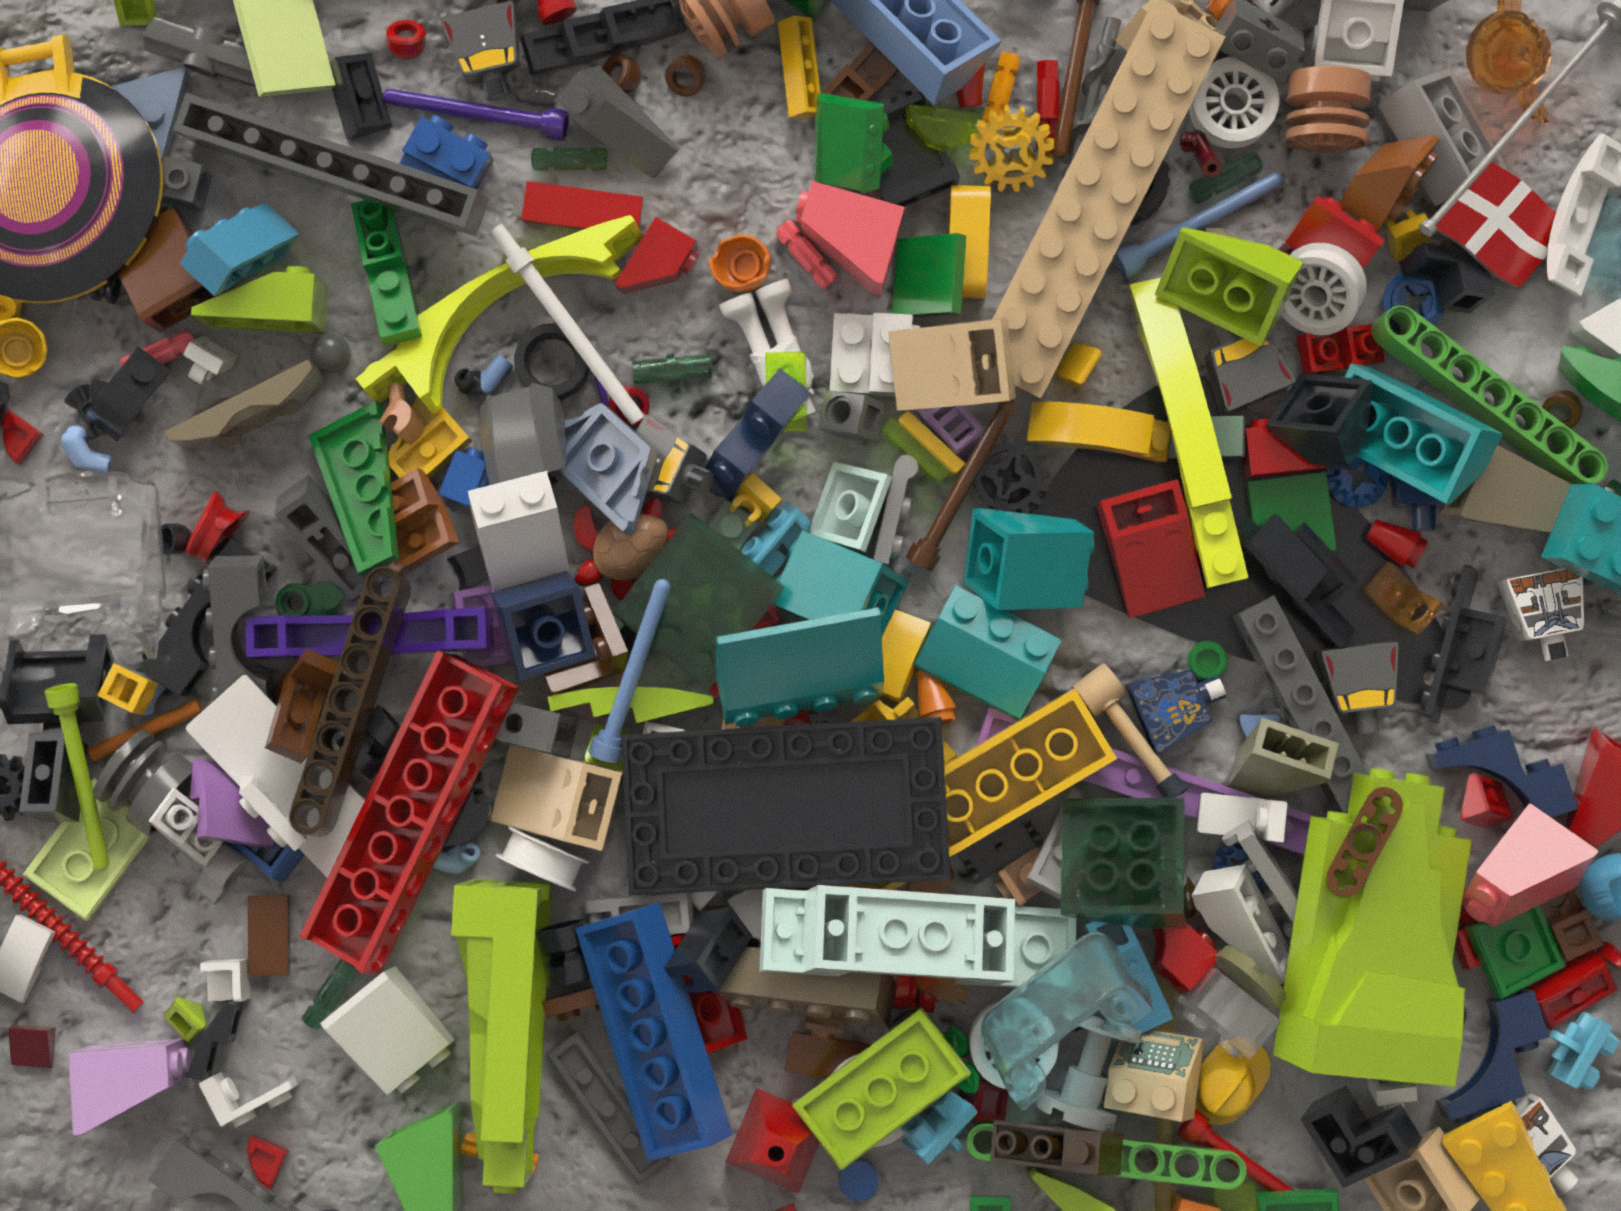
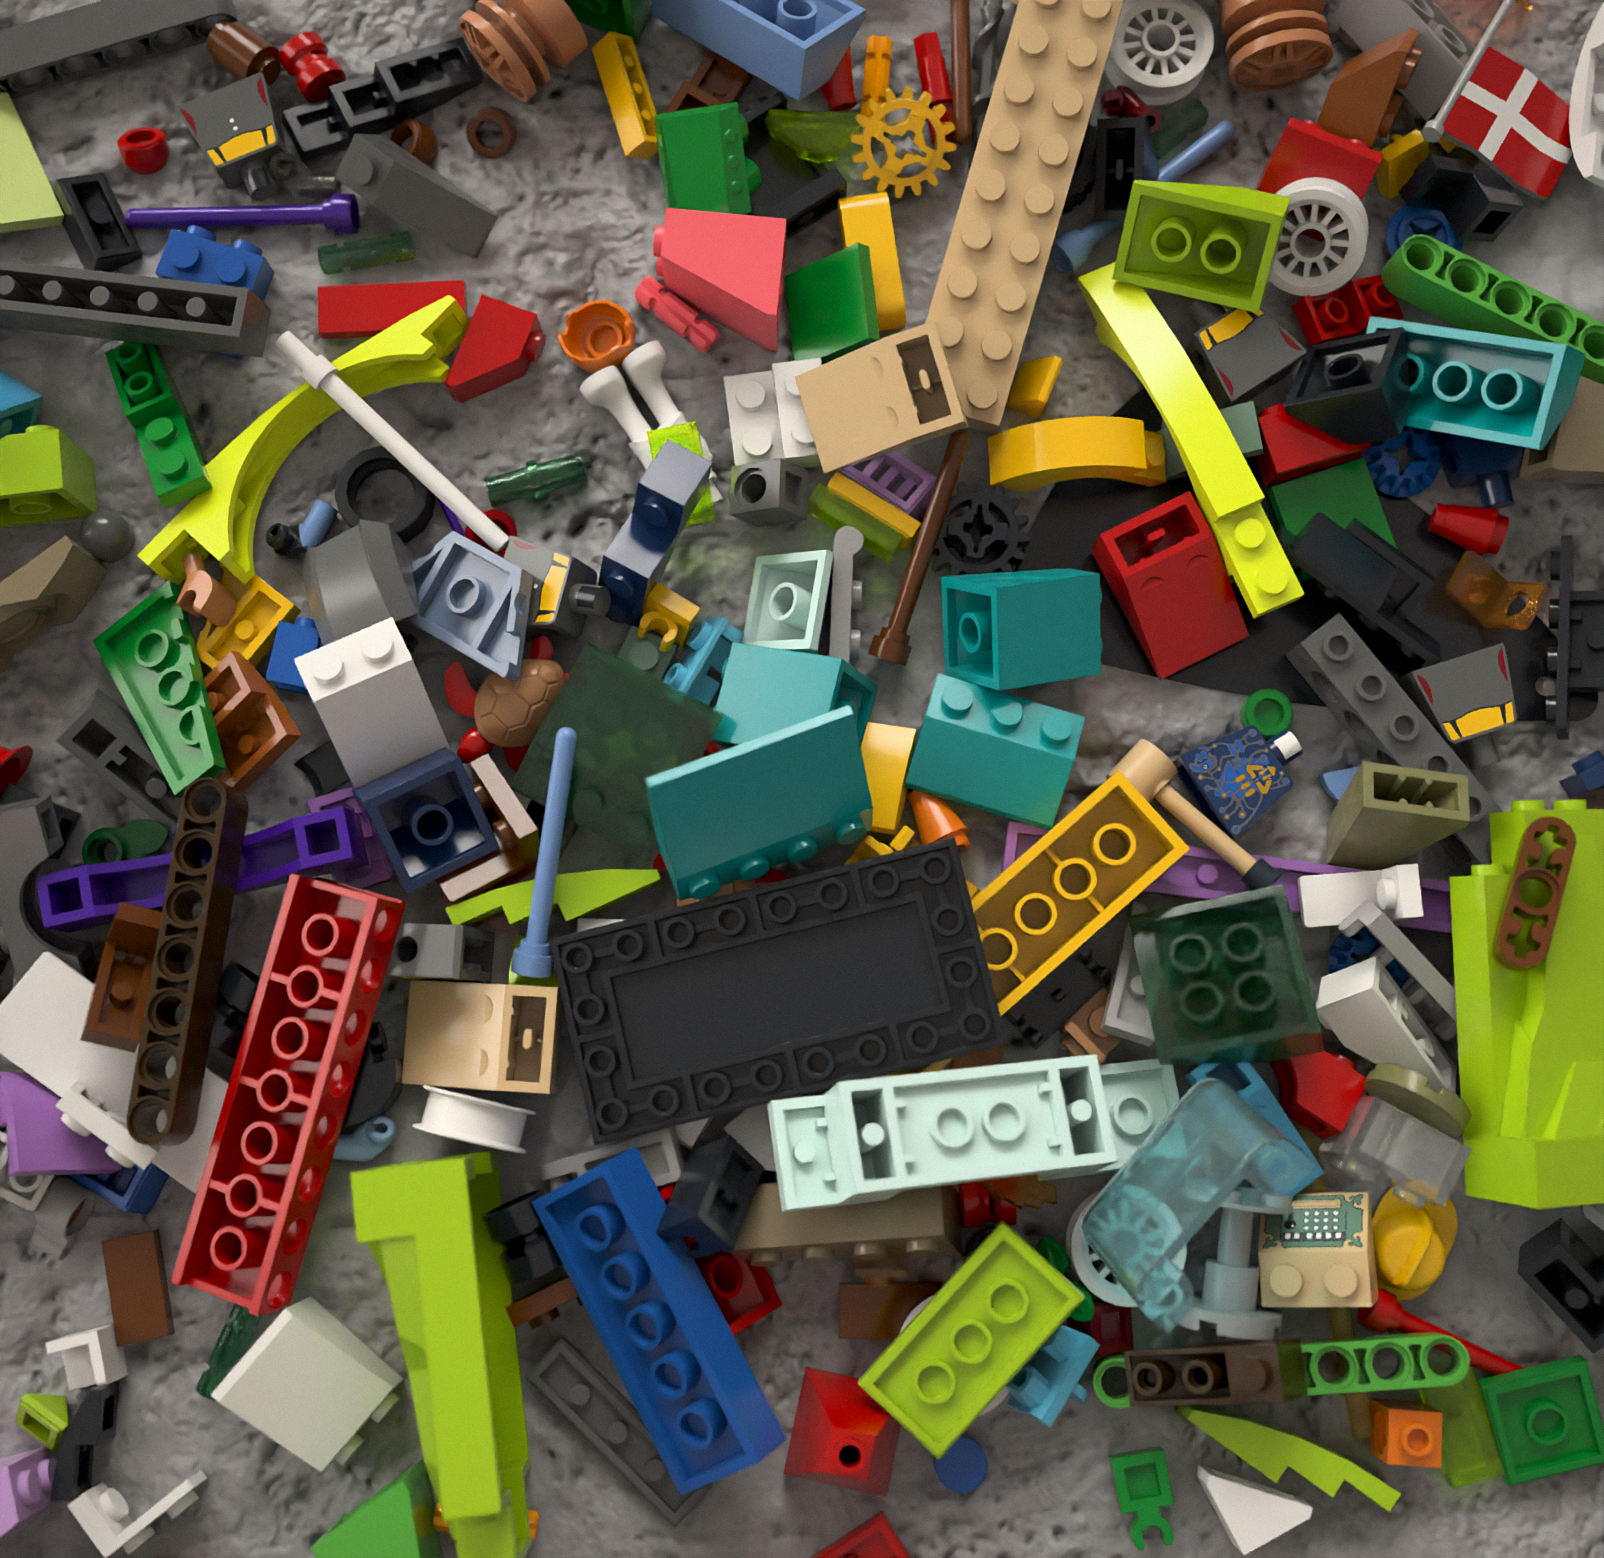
camera: 15 degrees left, 5 degrees down
(1183, 203) = (1122, 155): none -> black slope

